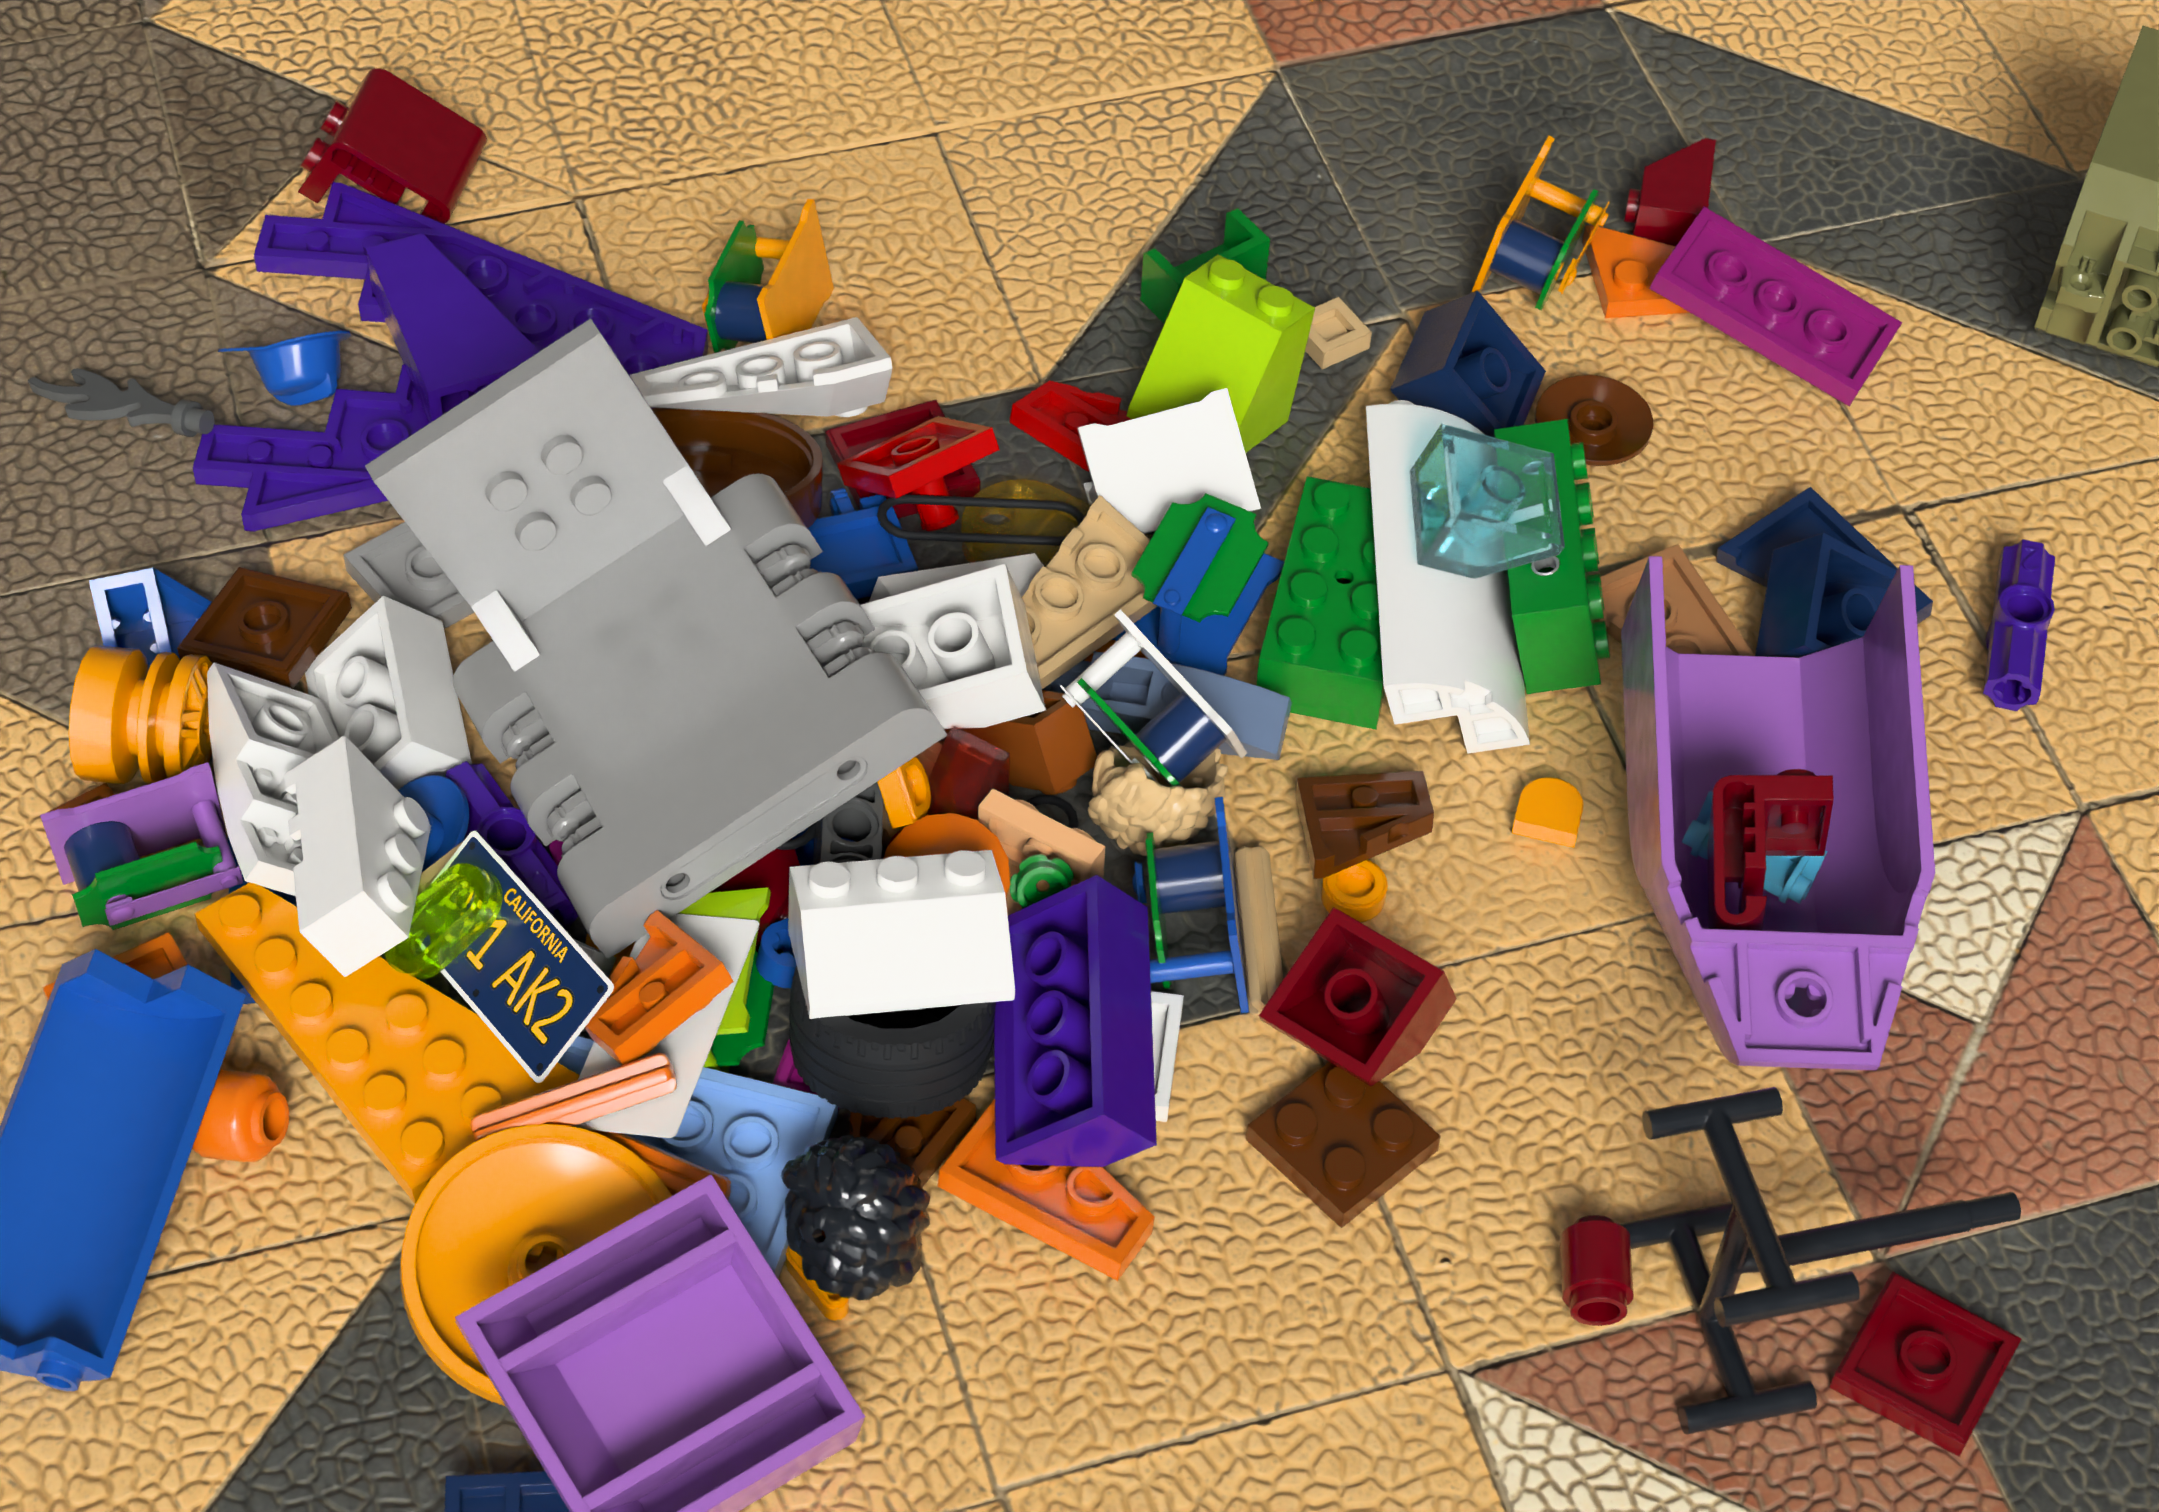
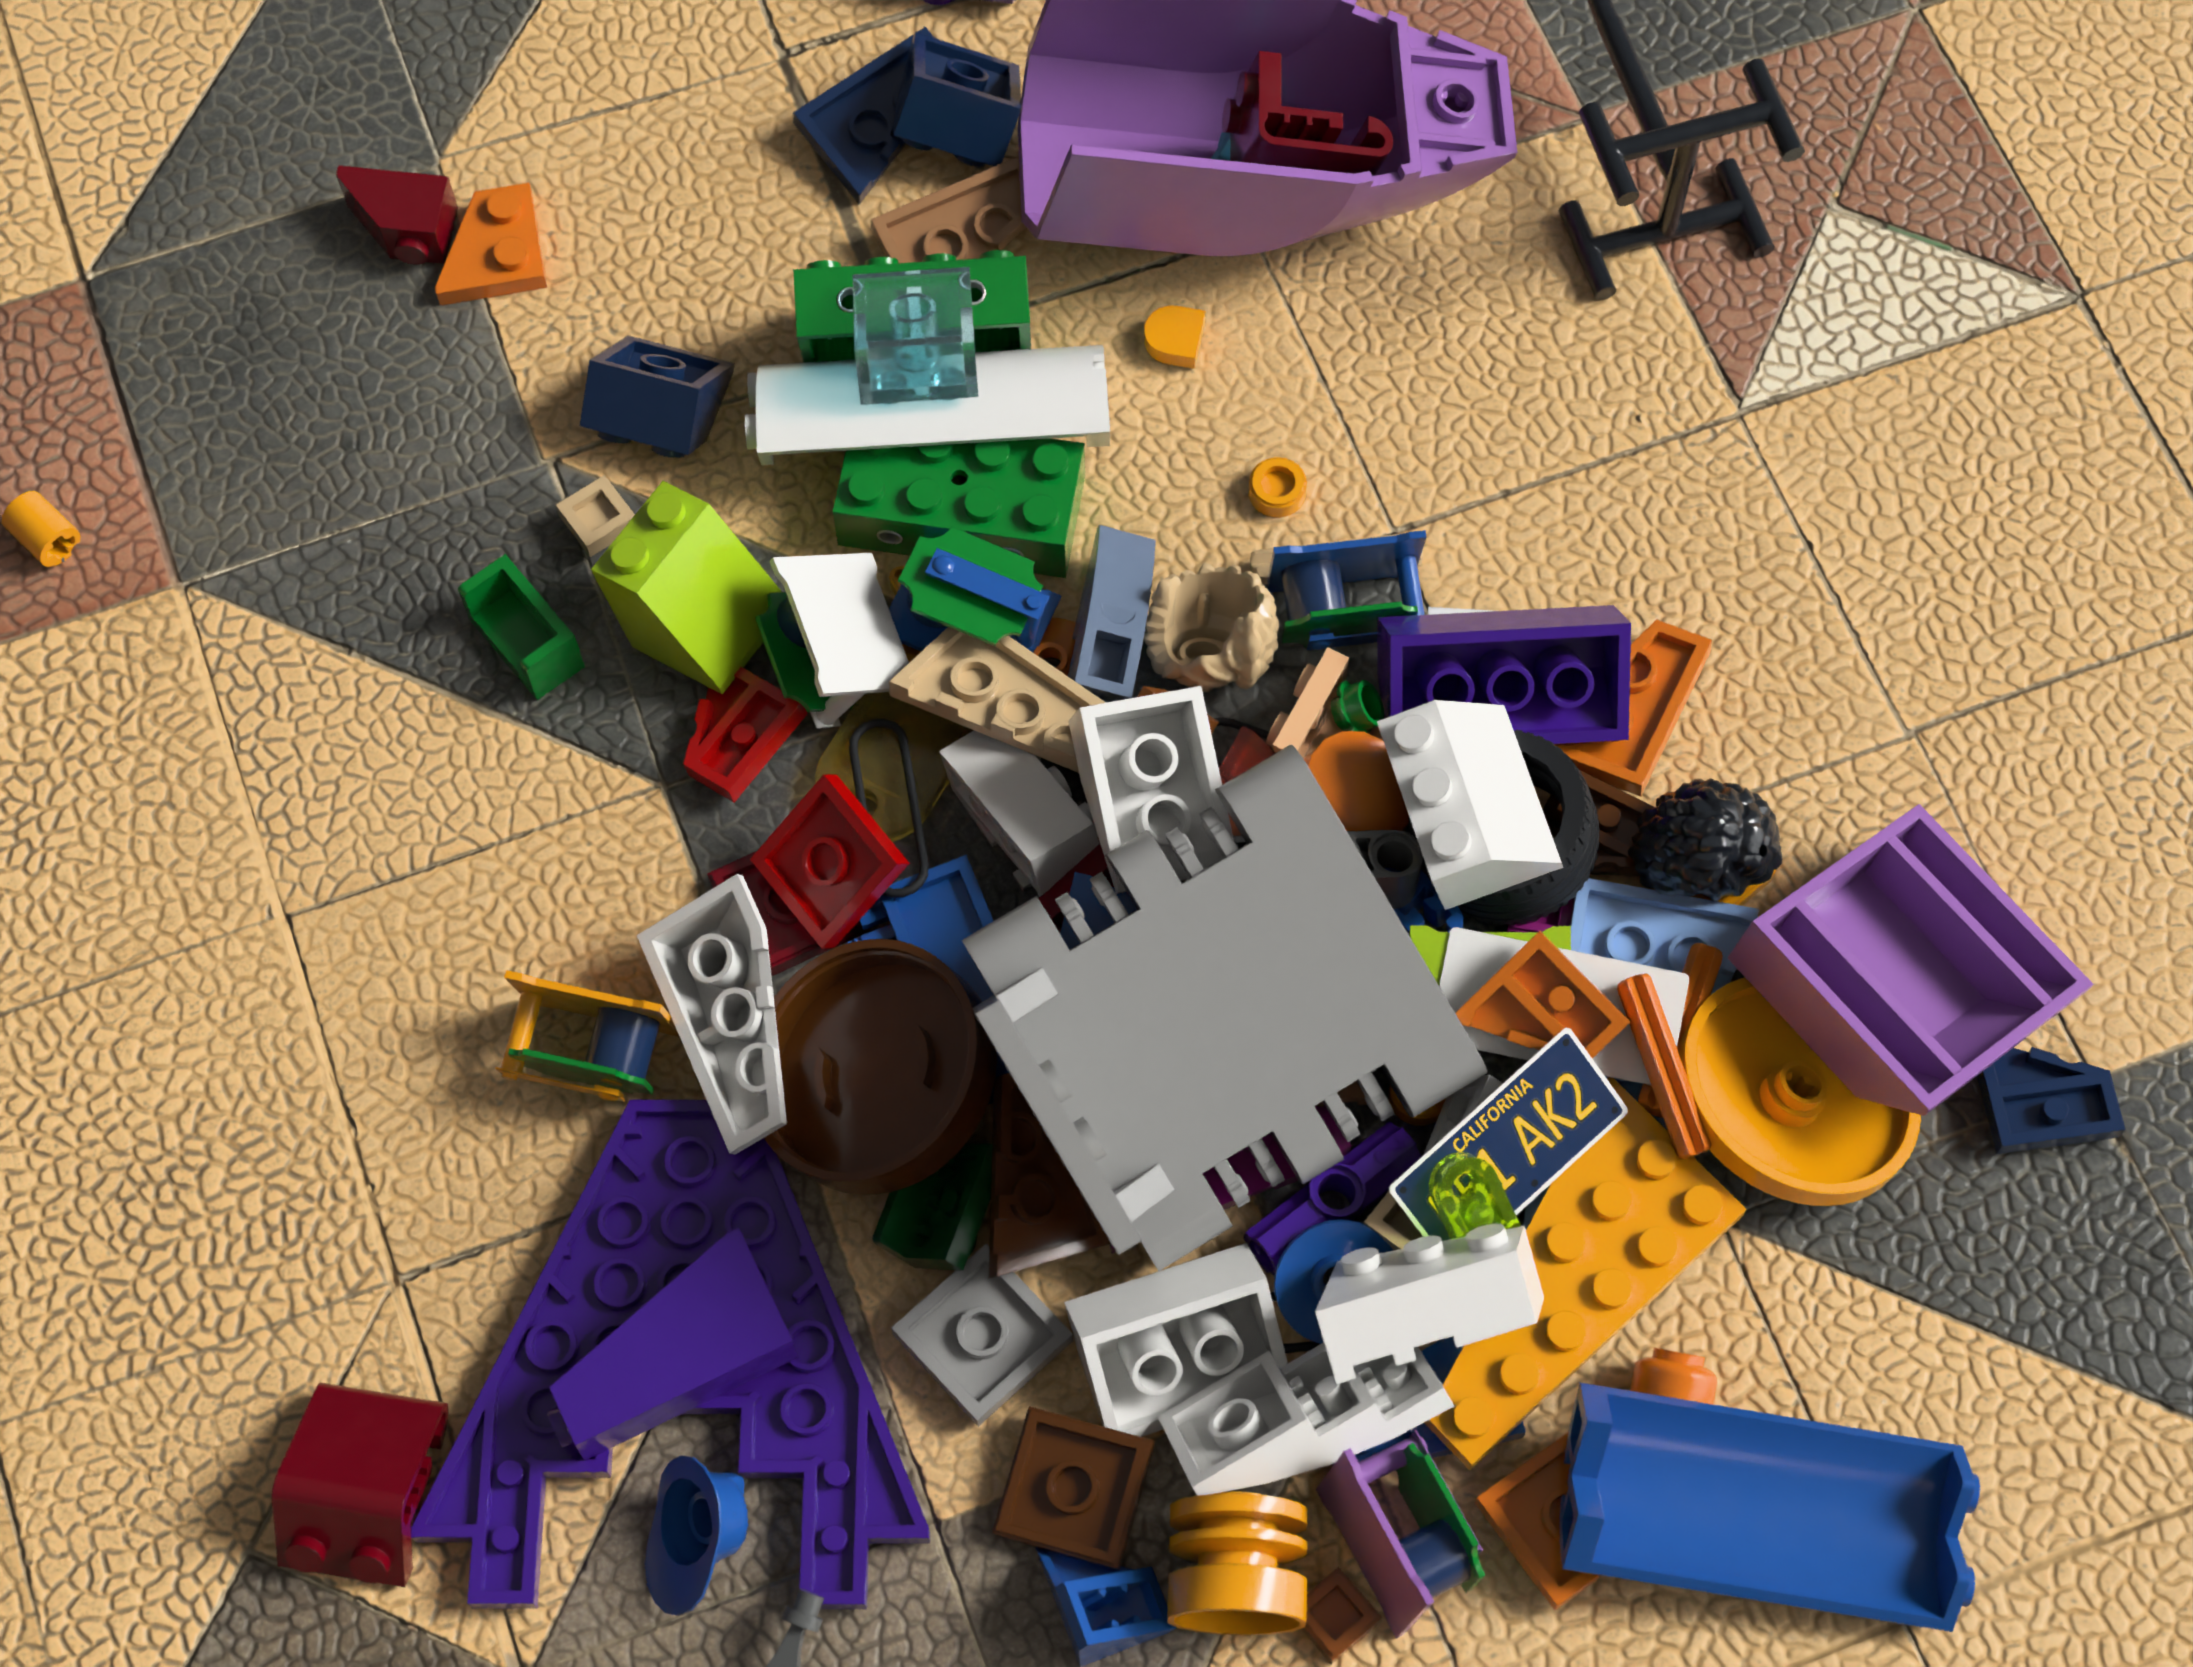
camera: 90 degrees left, 15 degrees up
(1174, 738) = (1195, 598): piece -> none
(1342, 1141) = (1539, 490): reddish brown plate -> none
(1359, 999) = (1424, 467): dark red slope -> none
(1360, 816) = (1210, 477): reddish brown wing -> none
(1531, 255) = (477, 327): piece -> none
(1596, 1270) = (1650, 300): dark red brick -> none
(1601, 414) = (704, 269): reddish brown dish -> none
(1776, 305) = (557, 131): magenta plate -> none
(1925, 1363) = (1687, 80): dark red tile -> none

